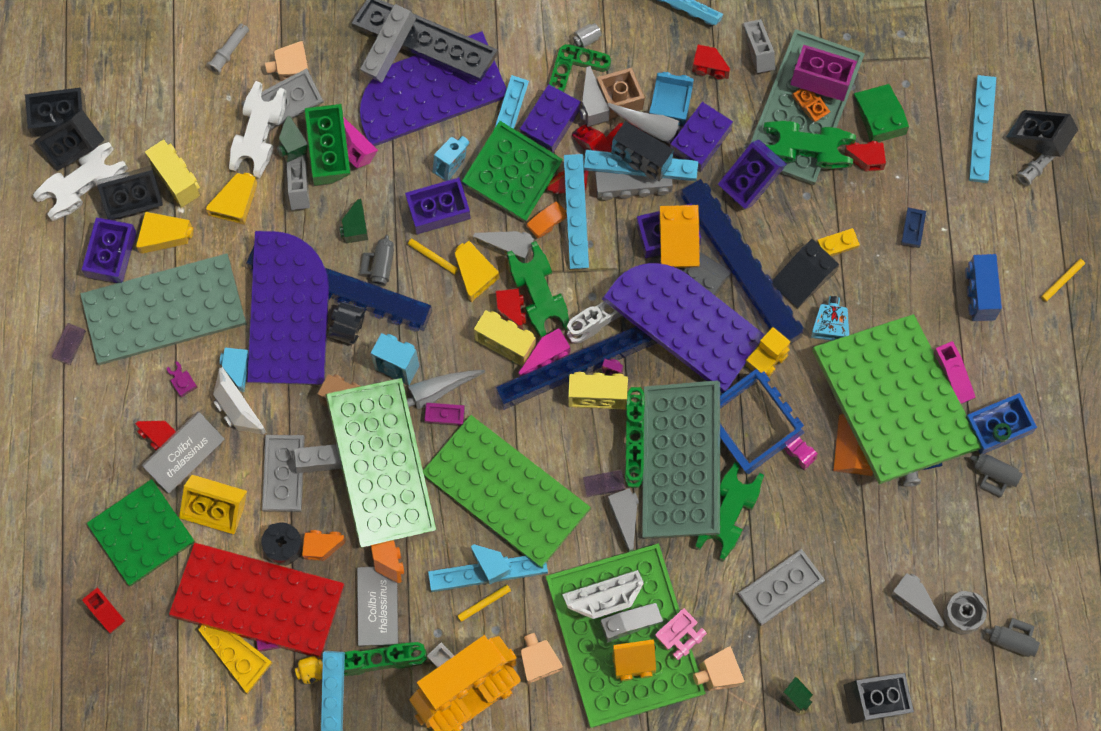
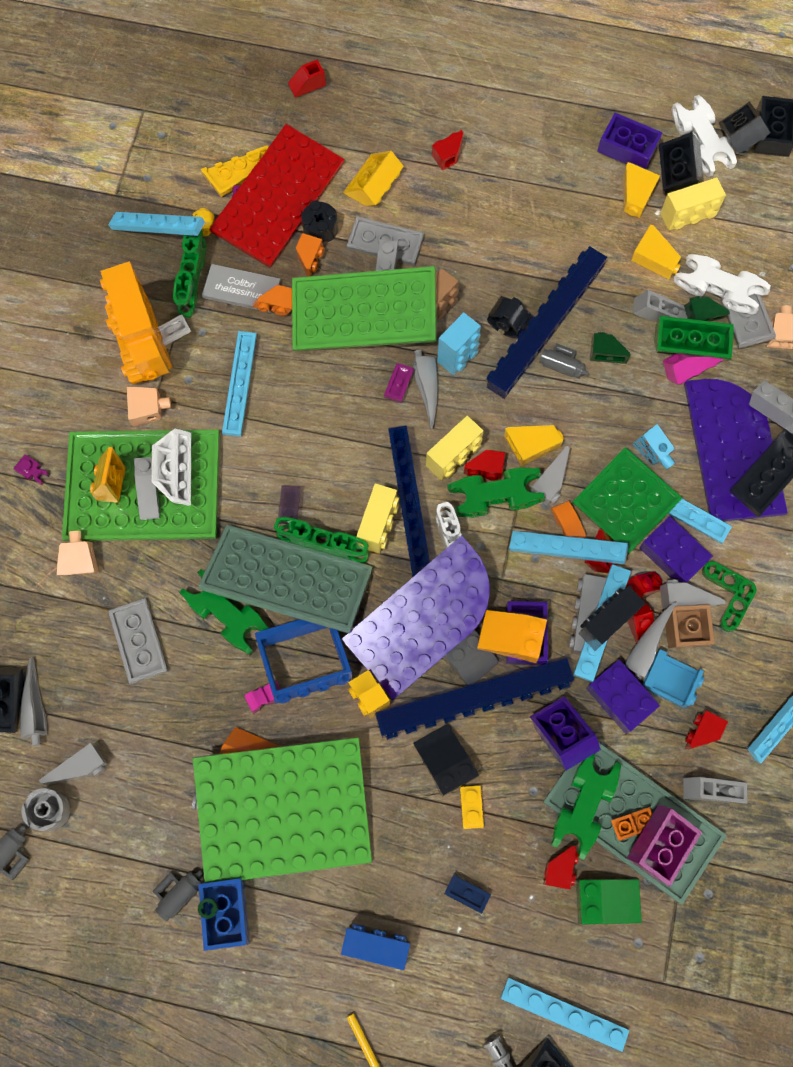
camera: 105 degrees right, 0 degrees up
(69, 344) = (551, 99): clear purple plate -> none
(140, 532) = (367, 123): green plate -> none
(163, 309) = (565, 179): sand green plate -> none
(182, 382) = (493, 180): magenta plate -> none
(183, 452) = (426, 163): light grey tile -> none
(235, 406) = (459, 213): white wedge -> none
(236, 365) = (492, 221): medium azure slope -> none
(287, 312) = (534, 270): dark purple plate -> none
(431, 255) = (560, 409): yellow bar -> none
(438, 205) = (606, 423): dark purple brick -> none
(483, 603) = (214, 374): yellow bar -> none
(491, 563) = (243, 381): medium azure slope -> none
(506, 491) = (309, 417): bright green plate -> none
(549, 349) = (433, 485): dark pink slope -> none
(587, 35) = (762, 613): light grey brick -> none
(612, 367) = (394, 538): magenta plate -> none
(624, 510) = (254, 515): light grey slope -> none
(678, 628) = (126, 526): bright pink plate -> none
(797, 696) = (27, 620): dark green slope -> none
(831, 321) = (387, 771): medium azure torso -> none
(883, 662) = (32, 716): none -> light grey piece
(955, 371) = (293, 883): dark pink slope -> none

